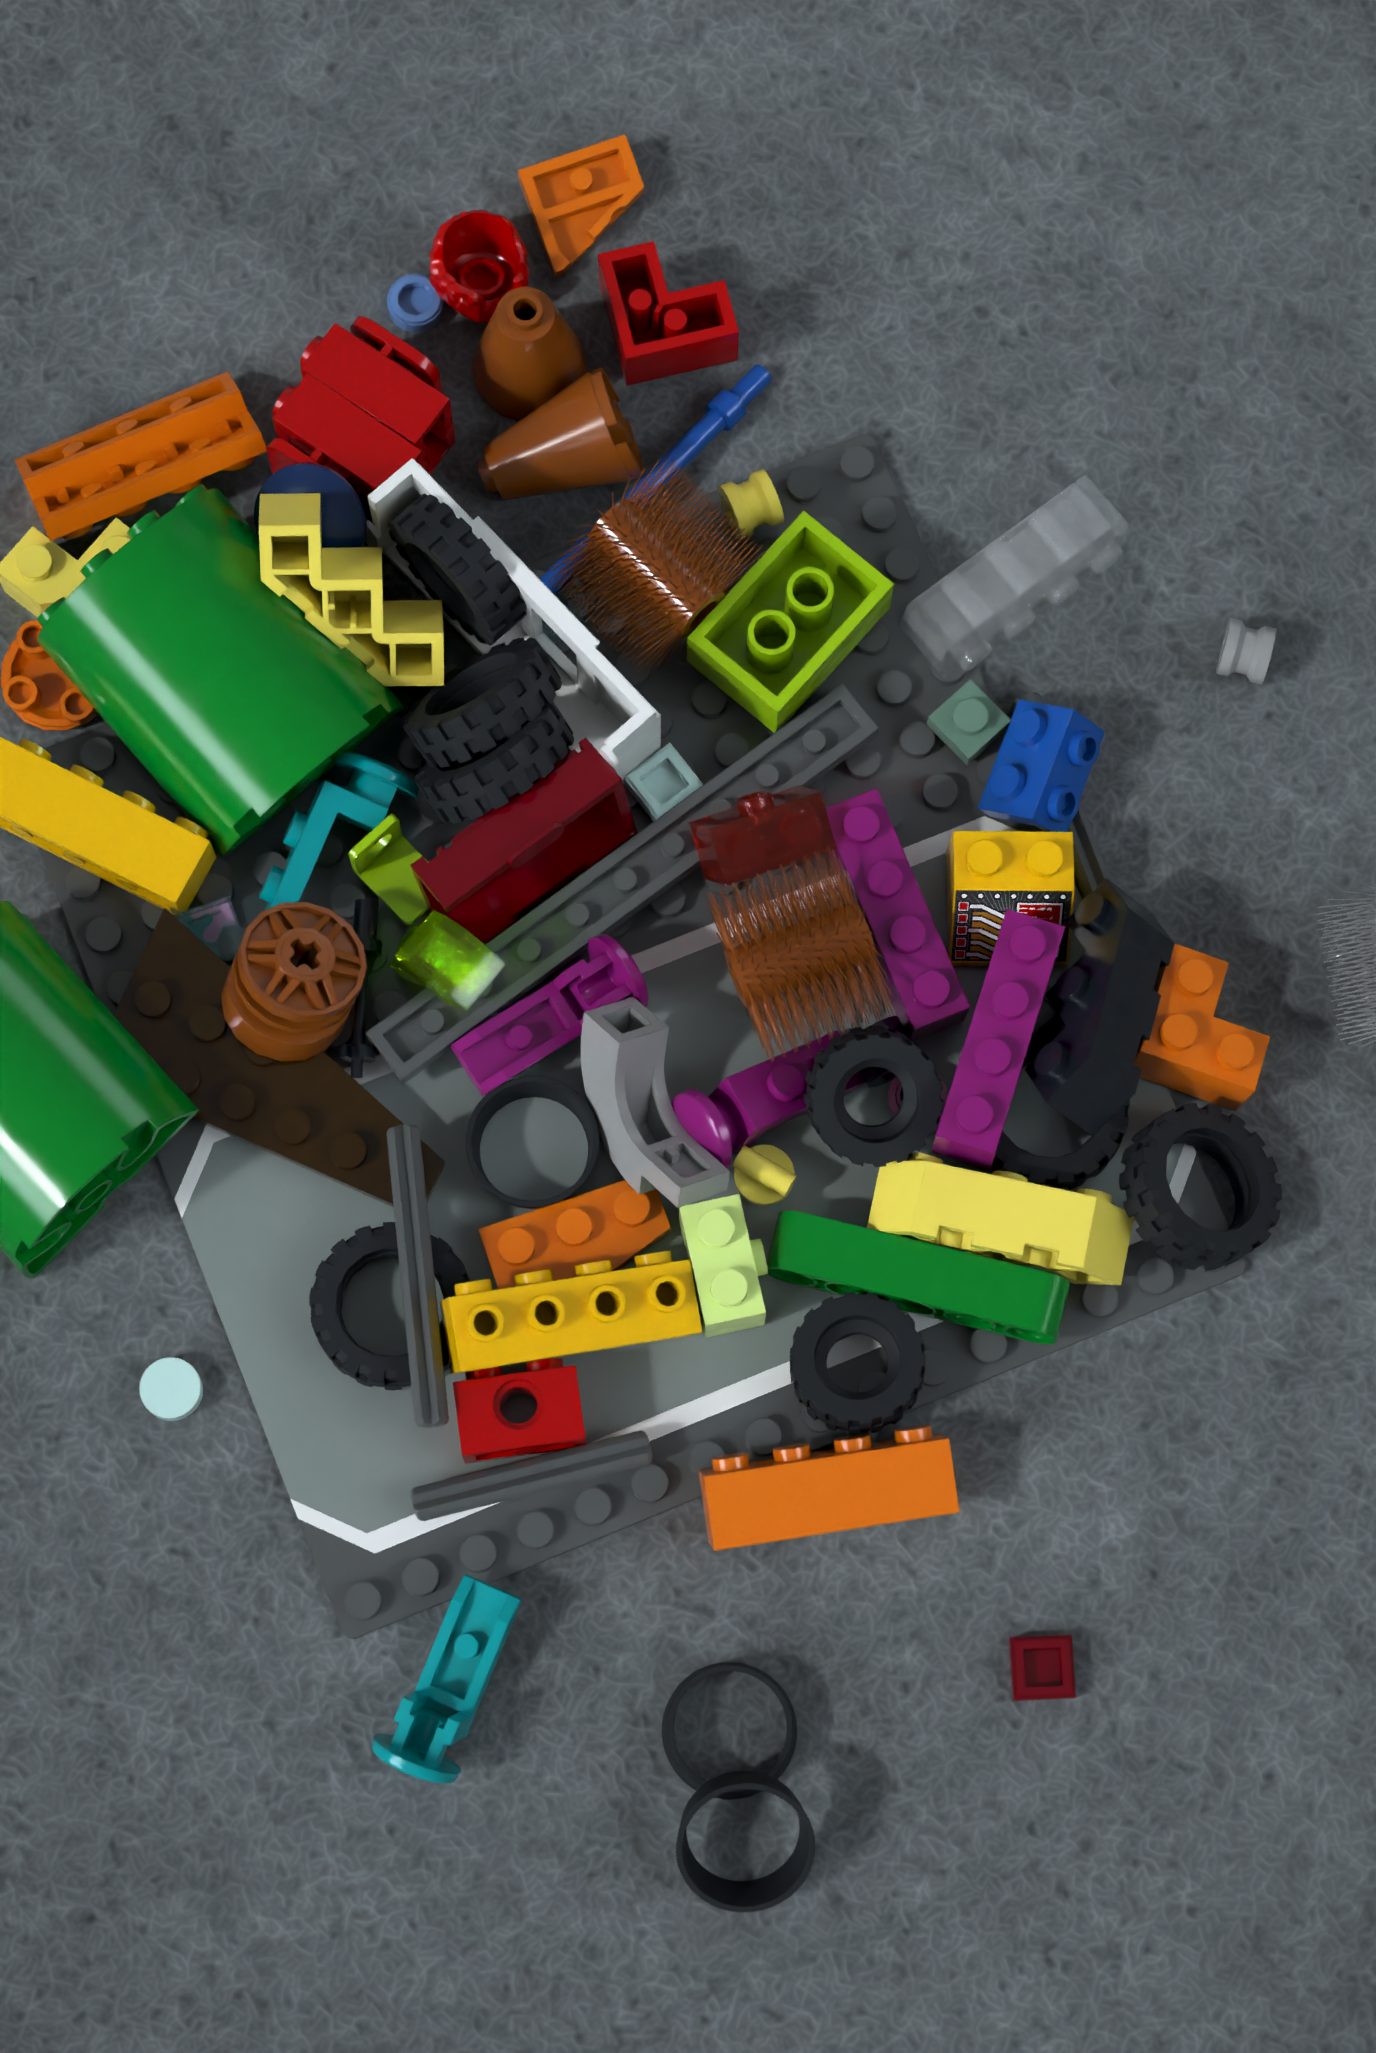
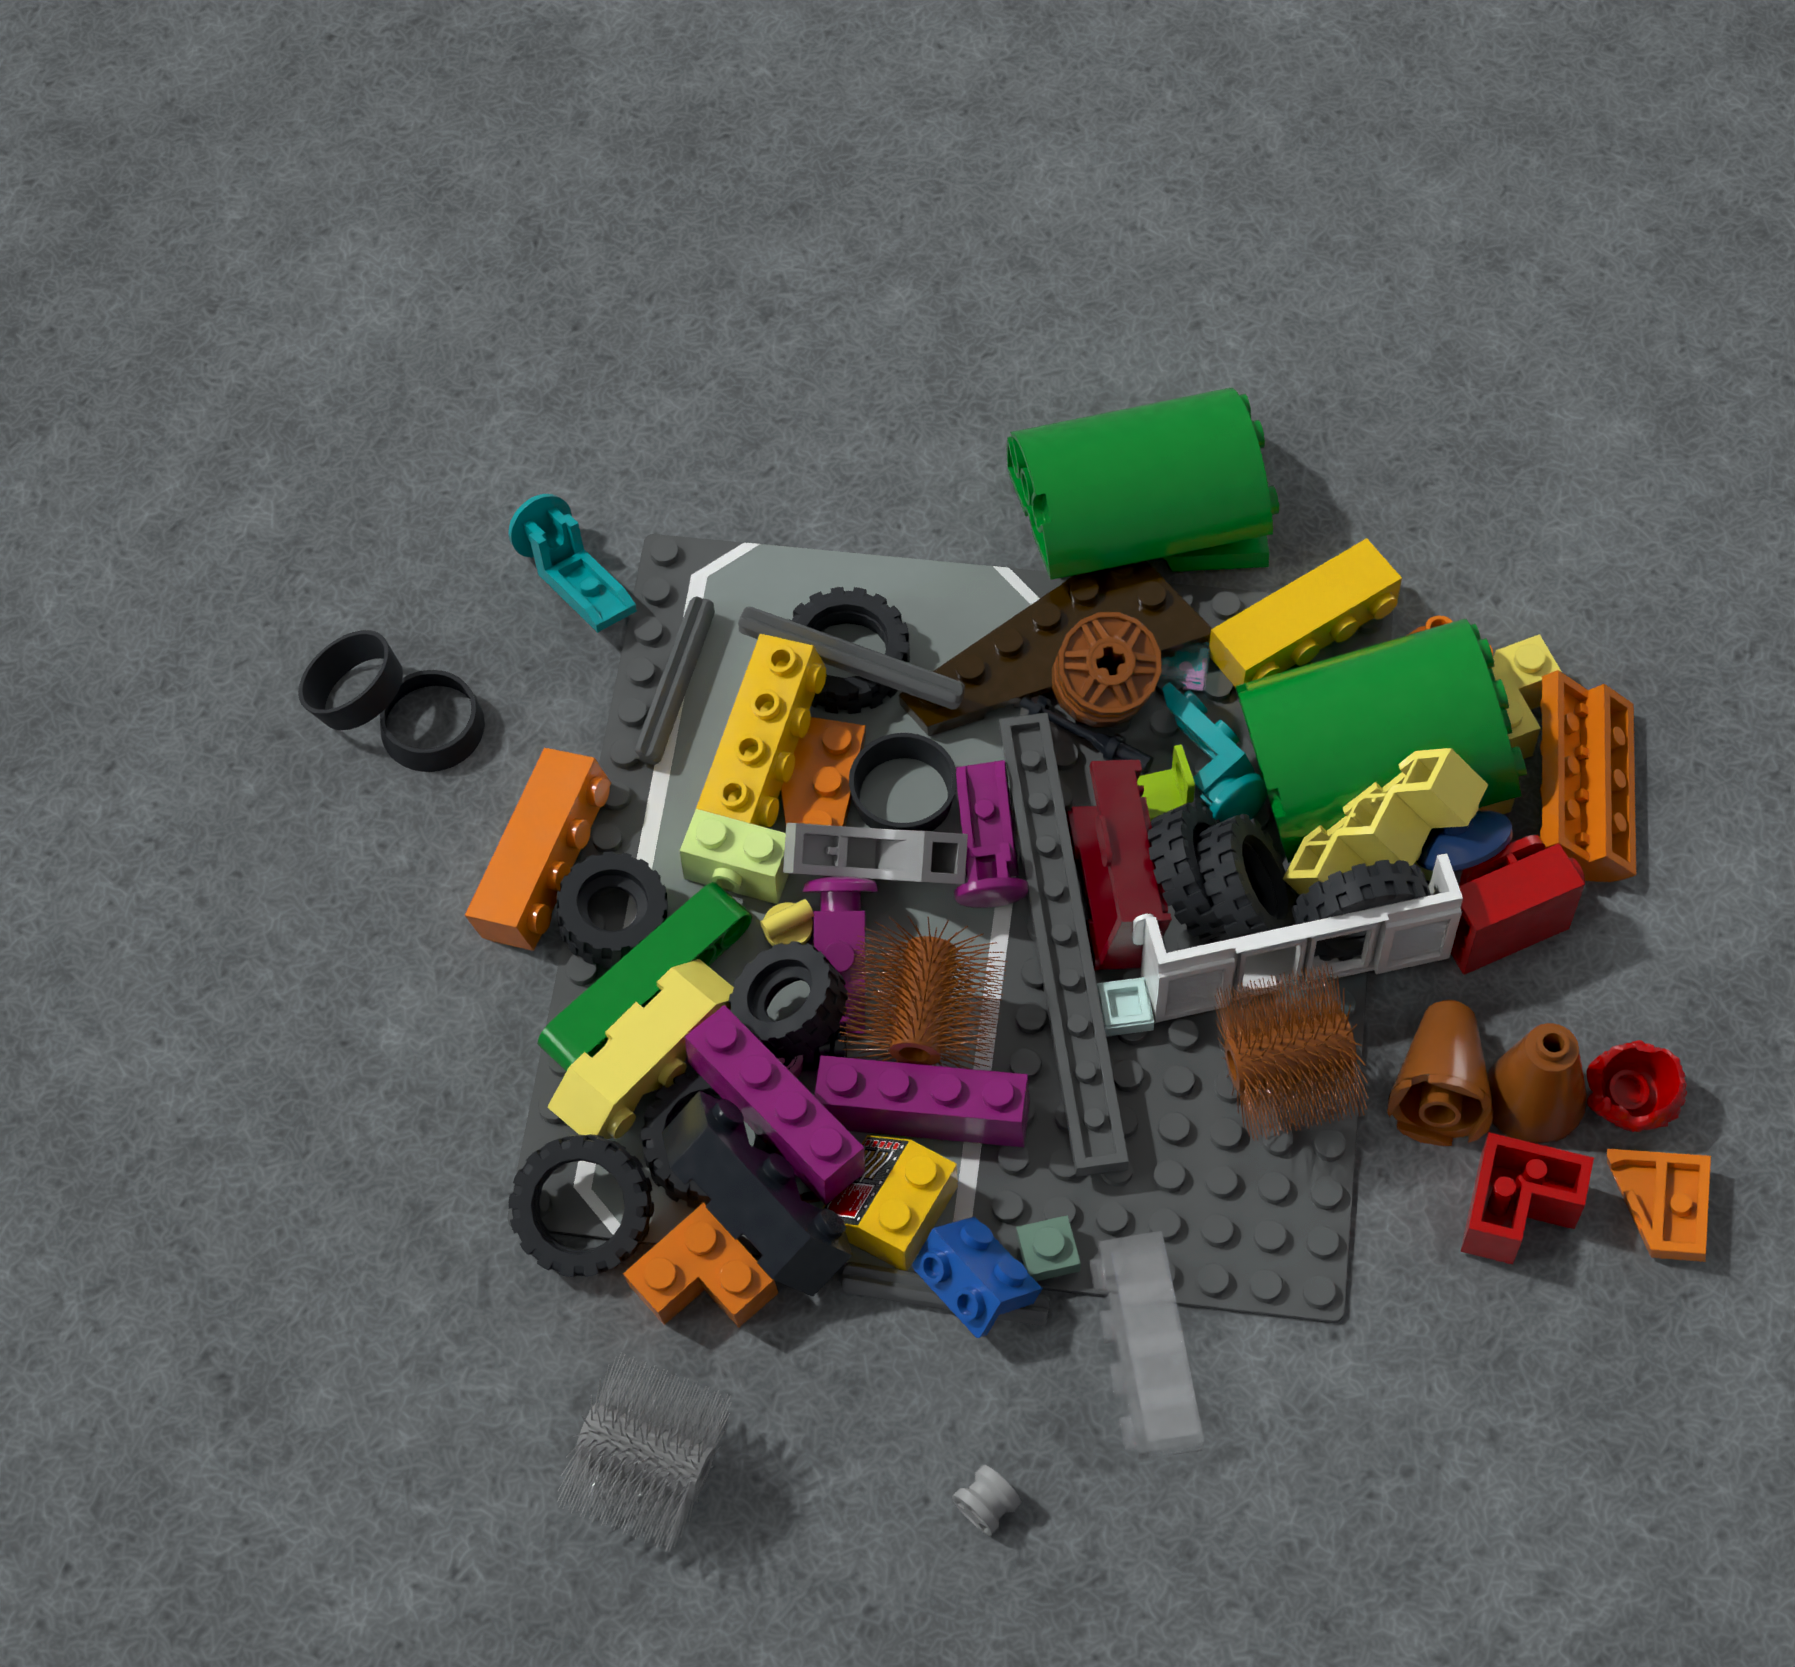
camera: 125 degrees right, 15 degrees down
(171, 1389) = (878, 508): light aqua tile -> none
(386, 382) = (1550, 952): red brick -> none
(414, 303) = (1632, 1028): medium blue tile -> none
(446, 961) = (1059, 771): clear neon green brick -> none
(490, 1436) = (718, 662): red brick -> none
(721, 414) = (1417, 1213): blue bar -> none
(751, 503) = (1318, 1176): light yellow wheel -> none
(762, 834) = (1033, 1025): clear red brick -> none
(789, 622) = (1198, 1143): lime brick -> none
(1042, 1668) = (332, 932): dark red tile -> none

